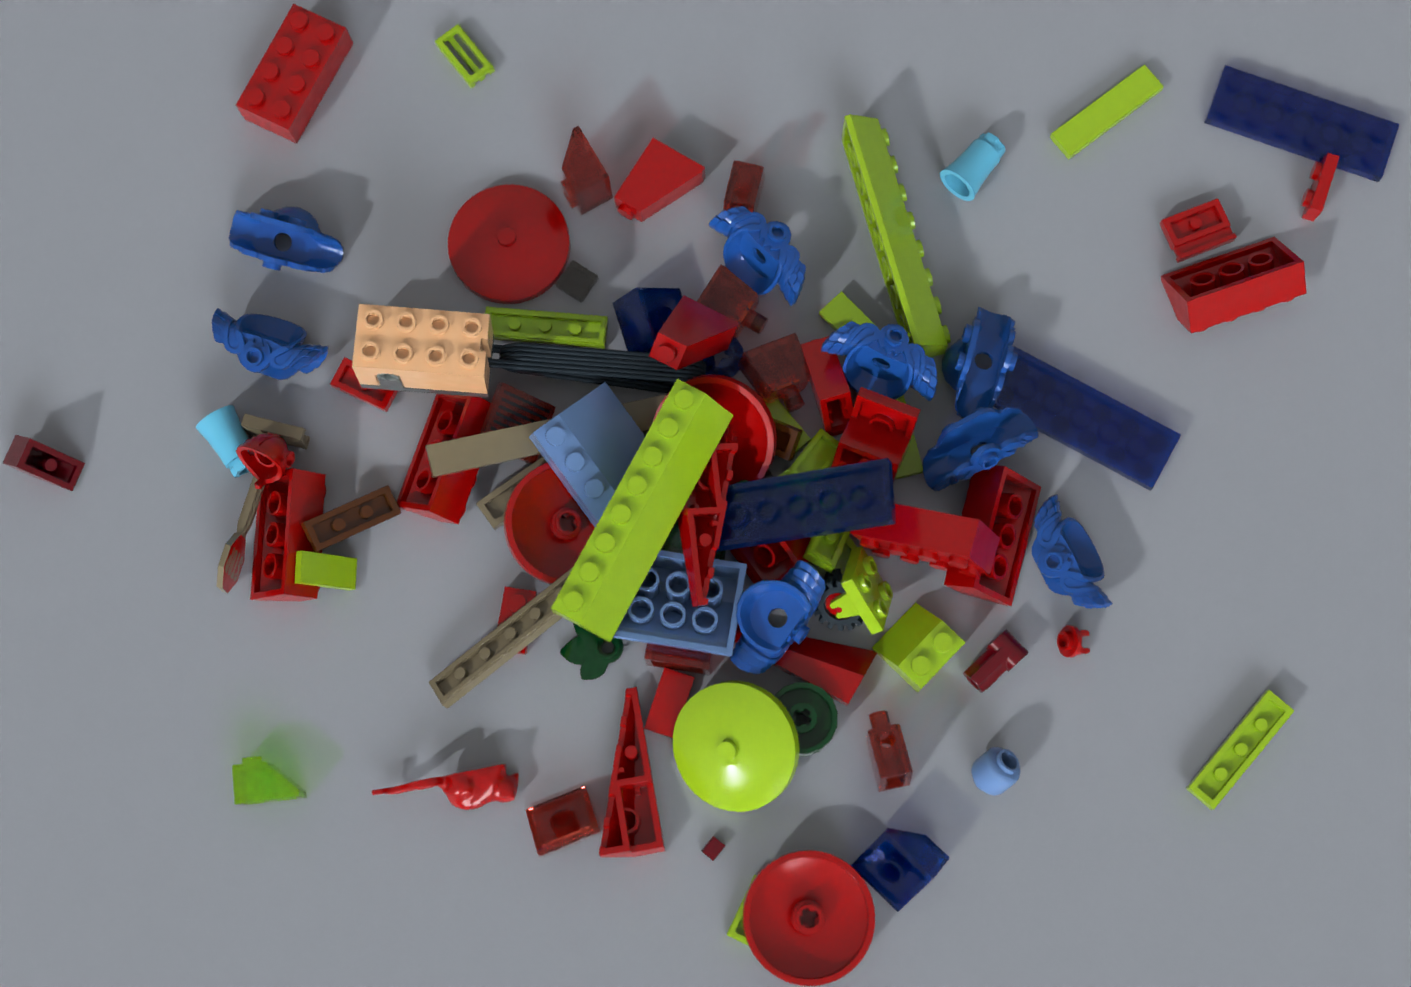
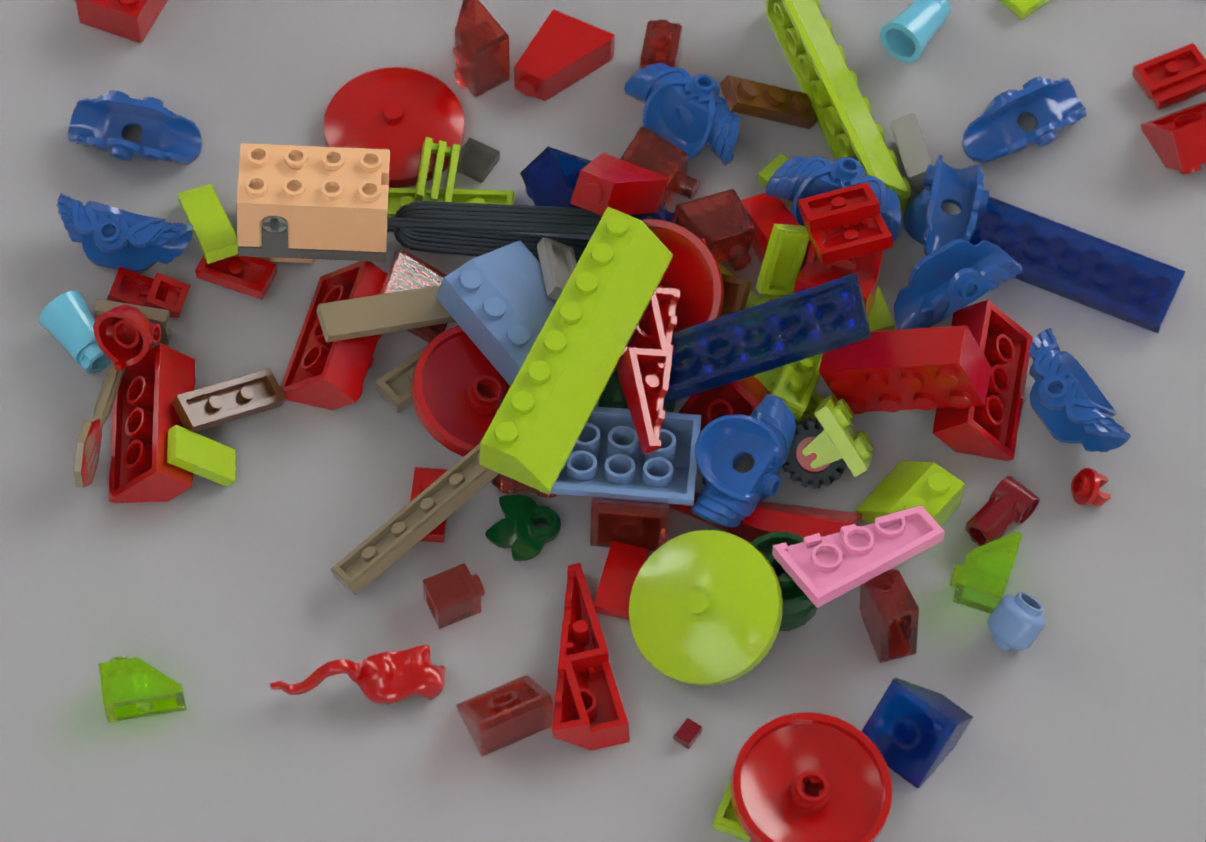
camera: 10 degrees left, 20 degrees down
(291, 401) = (141, 290): none -> red slope
(340, 332) = (209, 223): none -> lime tile
(528, 712) = (453, 595): none -> clear red brick
(545, 274) = (441, 151): none -> lime tile
(636, 409) = (556, 264): none -> light grey tile
(831, 413) = (783, 260): none -> lime tile
(833, 245) = (768, 102): none -> reddish brown plate
(858, 715) = (856, 554): none -> bright pink wing
(886, 394) = (845, 223): none -> red slope
(955, 299) = (911, 149): none -> light grey slope
(976, 721) = (986, 573): none -> clear neon green slope
(1034, 284) = (997, 131): none -> blue piece

